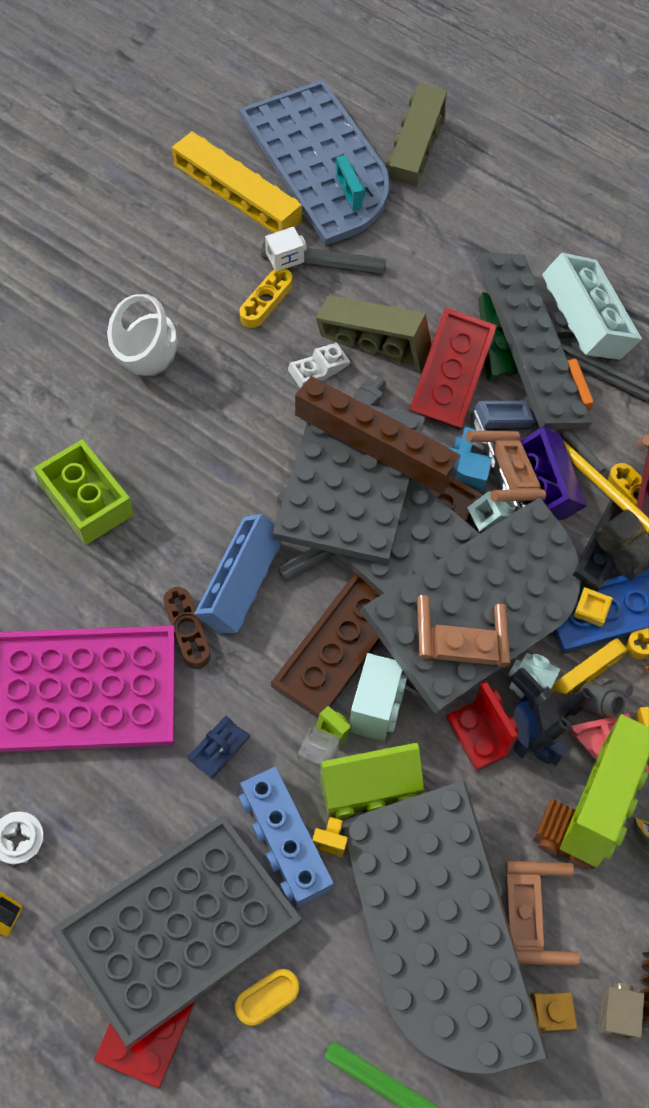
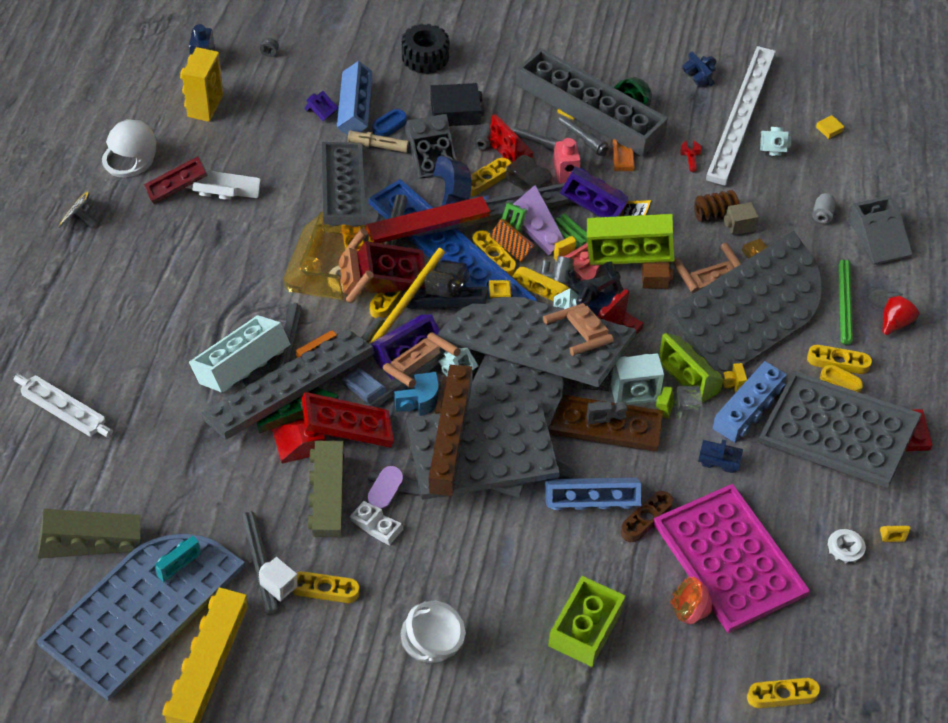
camera: 115 degrees left, 10 degrees down
(43, 609) = (691, 601): none -> hair
(326, 1000) = (853, 367): none -> yellow beam
(345, 629) = (603, 411): none -> dark grey plate
(355, 383) = (385, 487): none -> lavender tile
(588, 163) = (63, 405): none -> white plate

